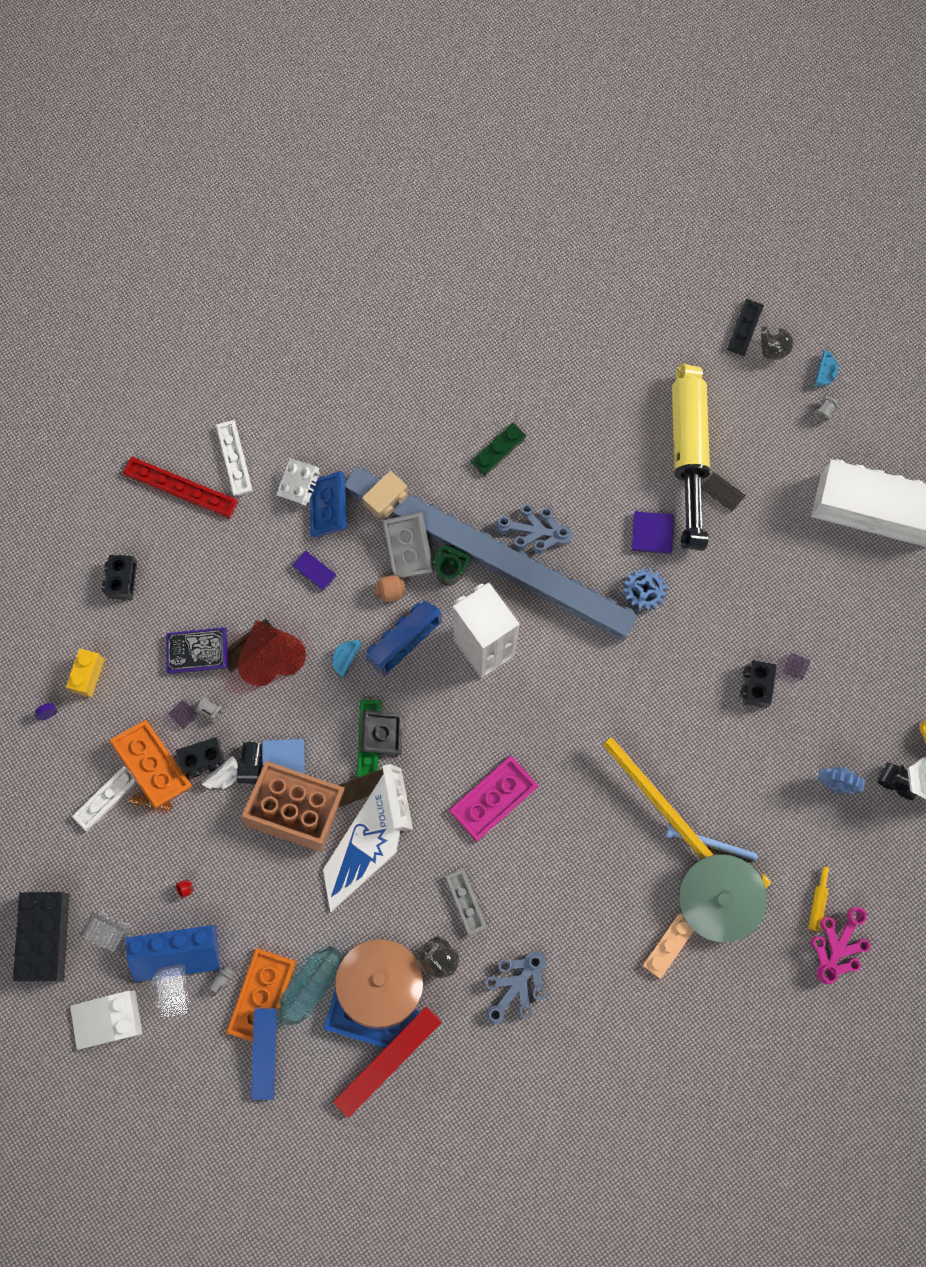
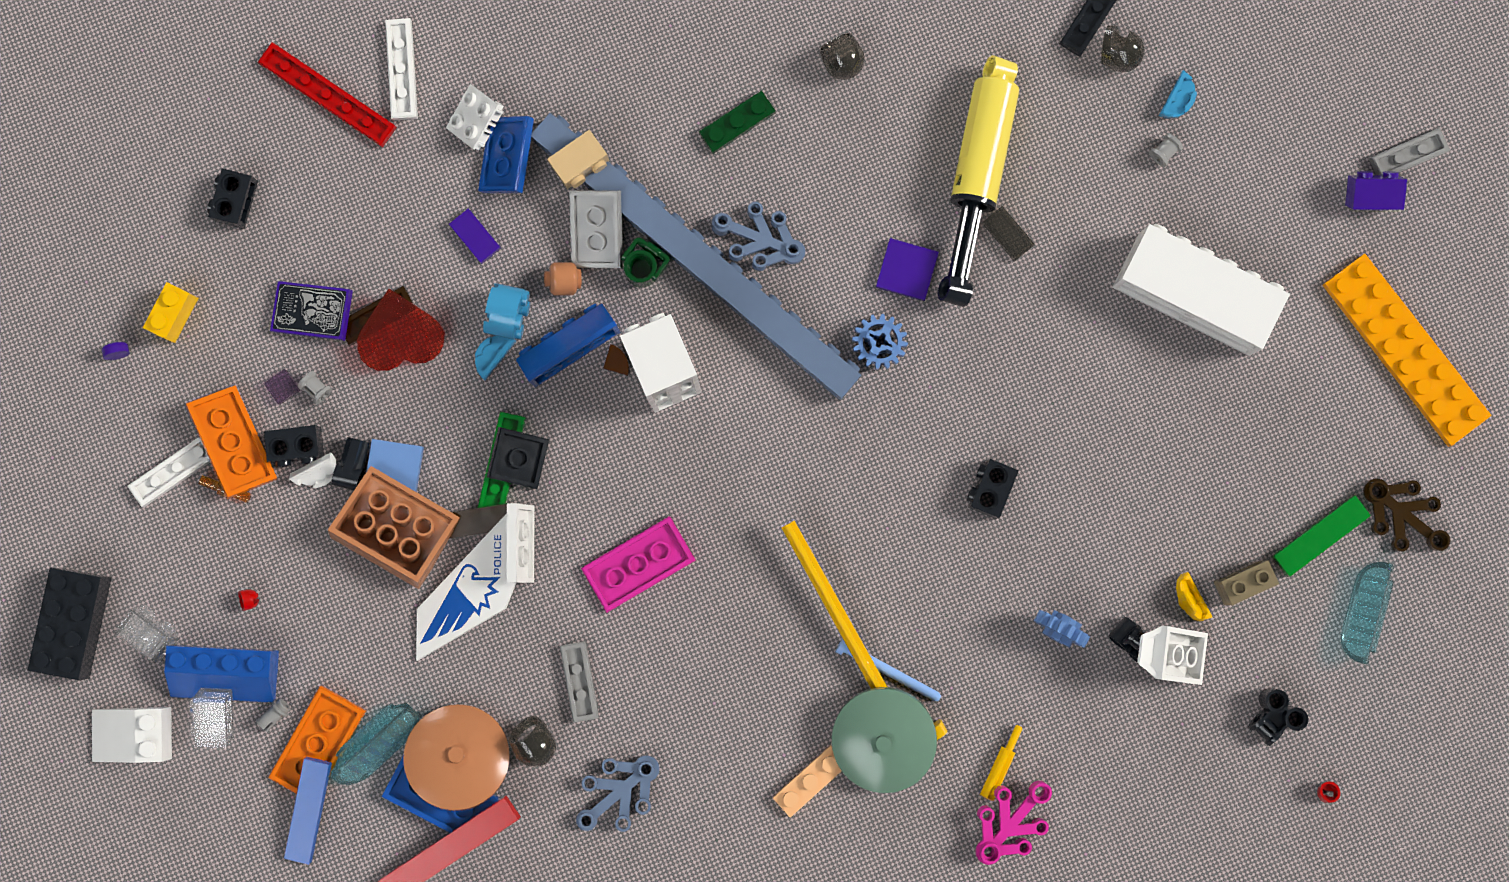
camera: 10 degrees right, 10 degrees up
(351, 620) = (506, 311): none -> dark azure brick
(444, 644) = (616, 361): none -> reddish brown tile
(569, 386) = (843, 57): none -> clear smoke helmet
(796, 666) = (1045, 475): clear purple tile -> none

